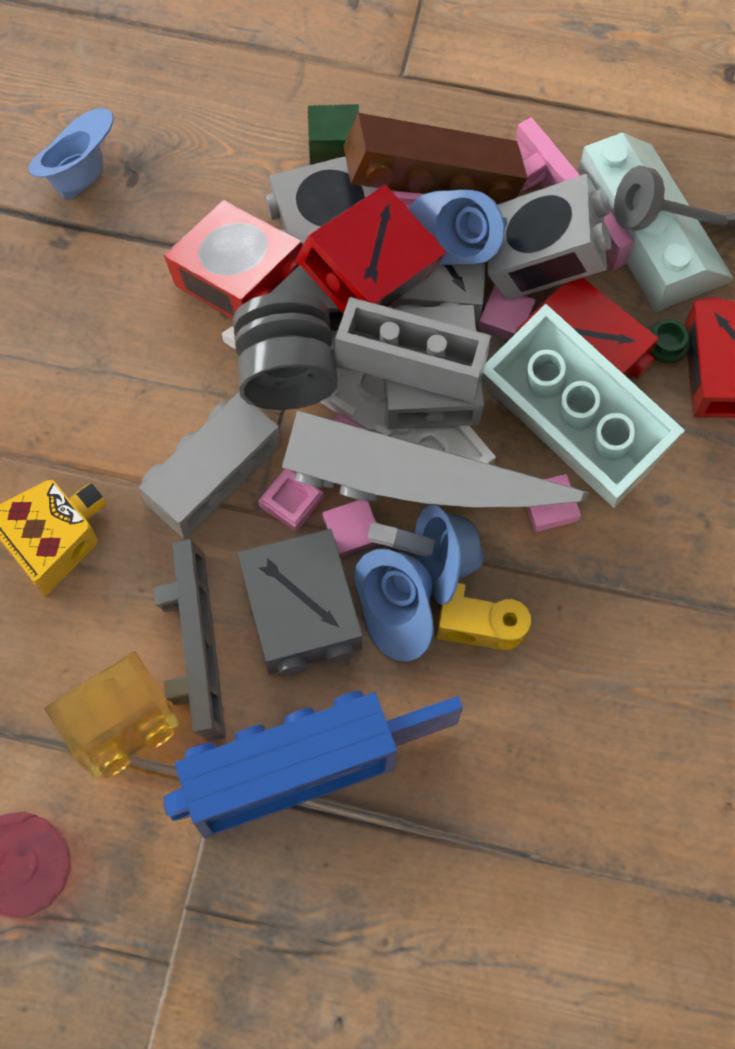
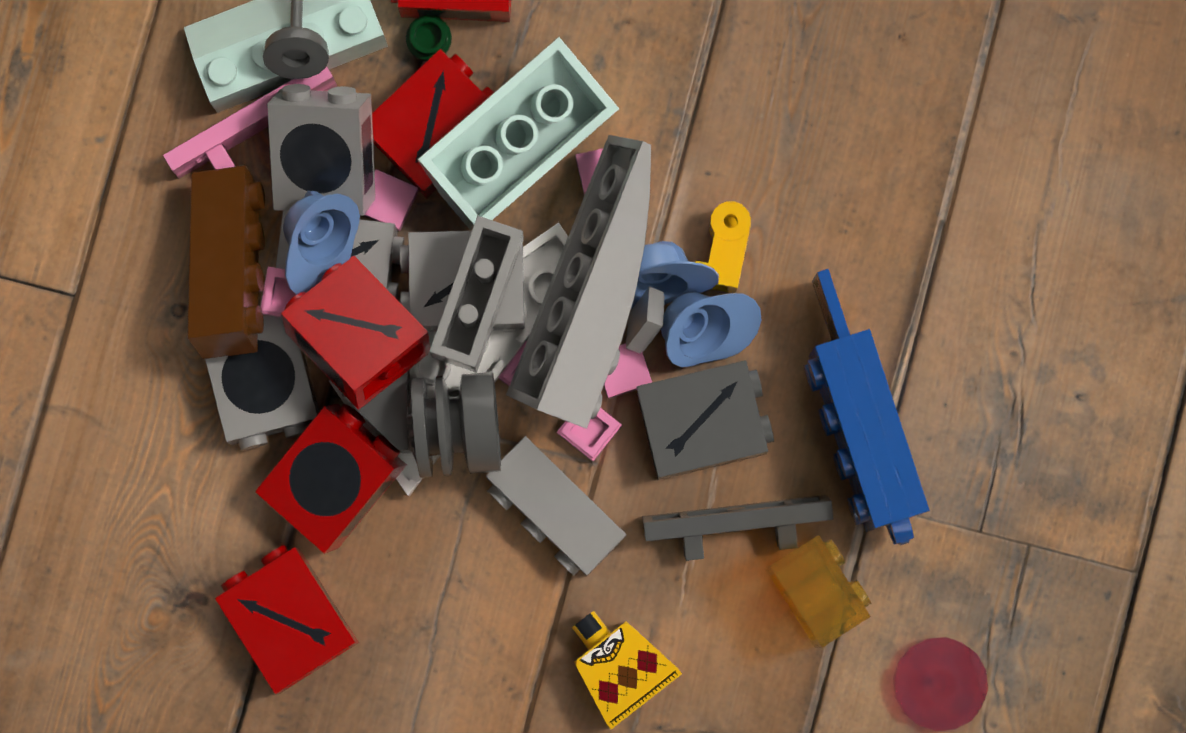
camera: 85 degrees left, 15 degrees up
(75, 155) = (177, 657): medium blue piece -> none
(107, 238) = (285, 618): none -> red brick
(328, 130) = (164, 370): dark green brick -> none

